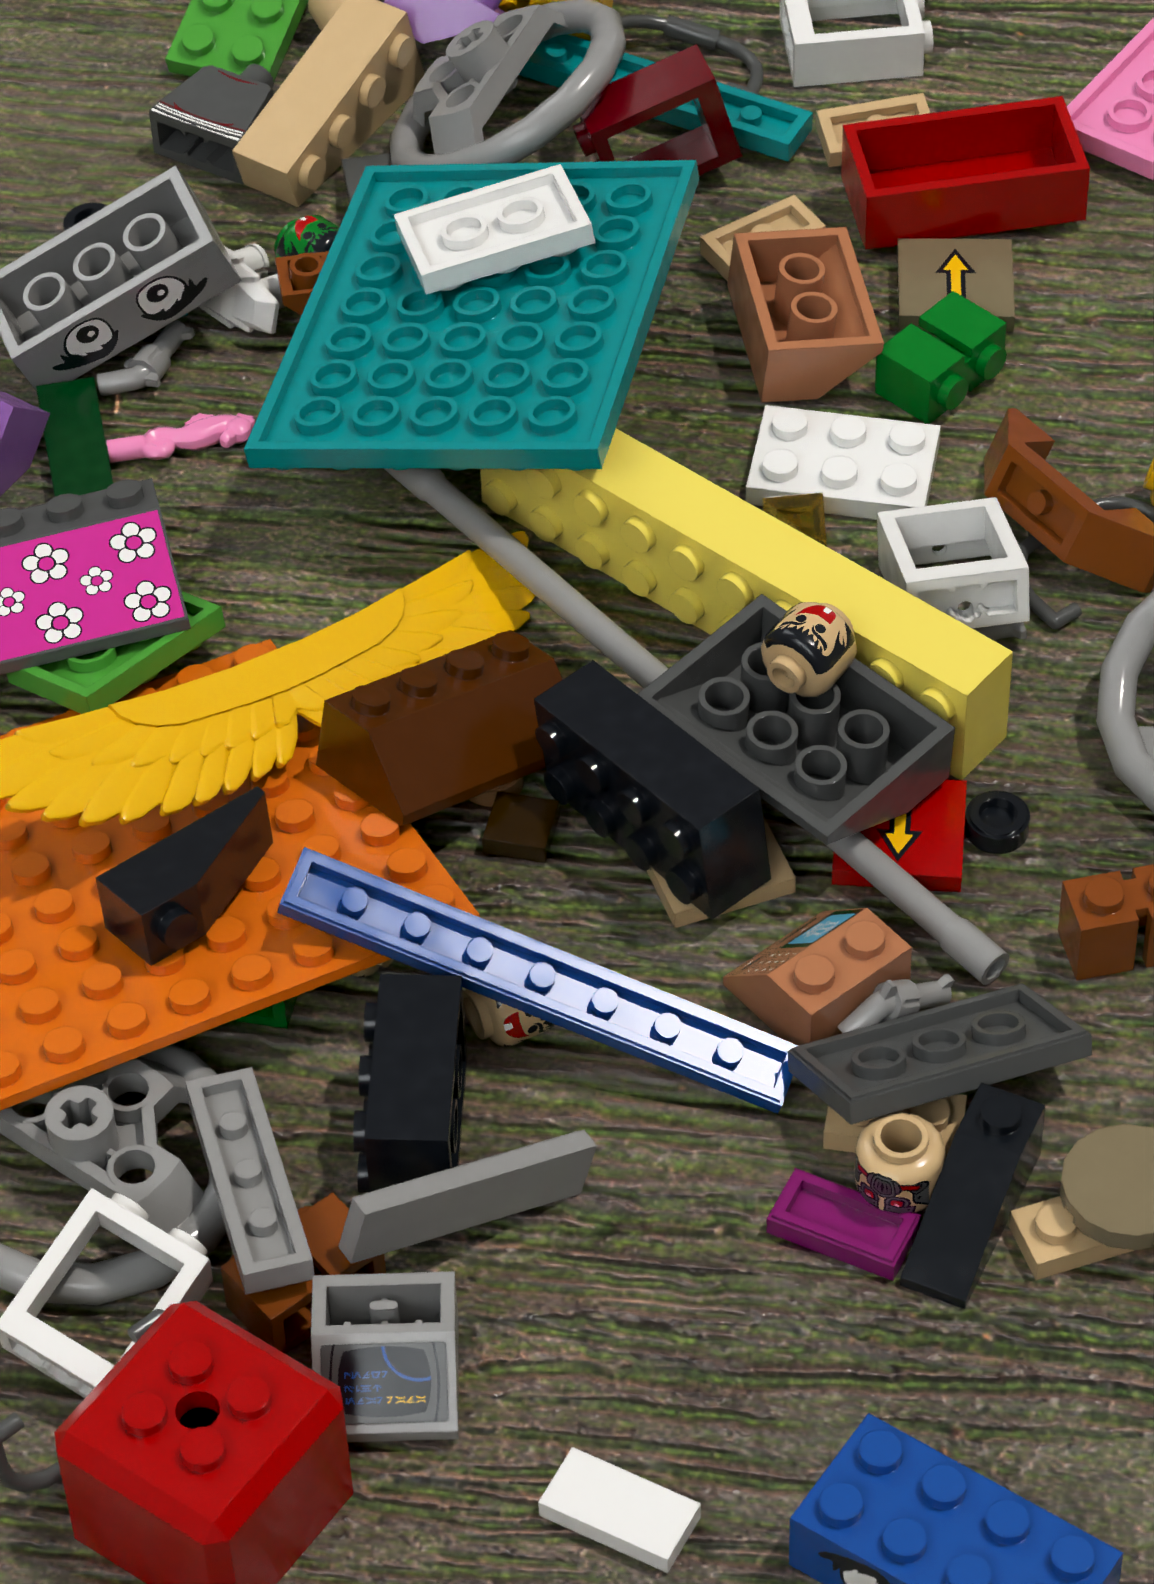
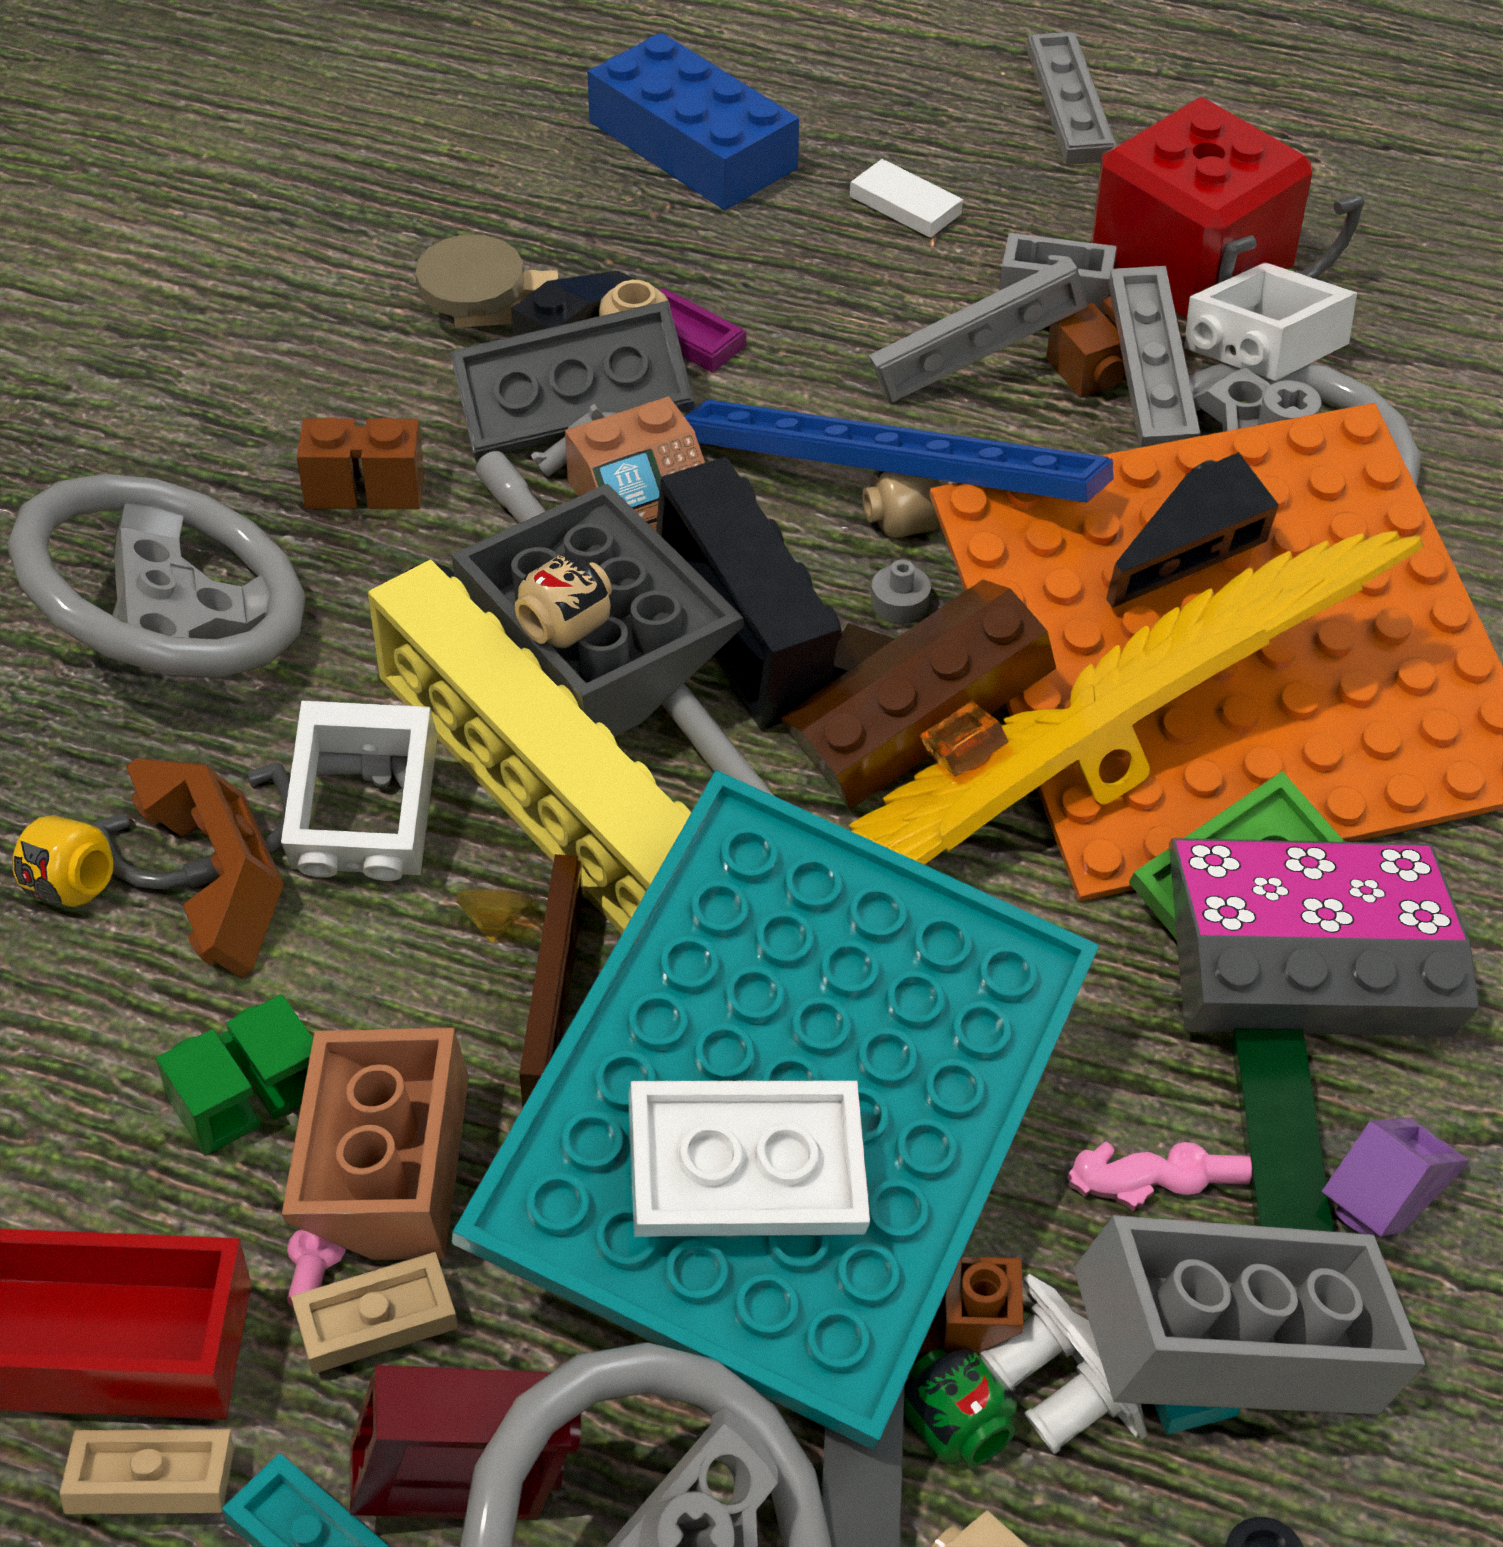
camera: 170 degrees left, 0 degrees up
(388, 655) = (964, 739): none -> clear orange plate
(411, 1080) = (1015, 378): black brick -> none
(503, 903) = (900, 592): none -> light grey tile
(709, 428) = (553, 971): none -> reddish brown tile
(851, 459) = (407, 974): white plate -> none
(971, 267) = (172, 1187): dark tan tile -> none

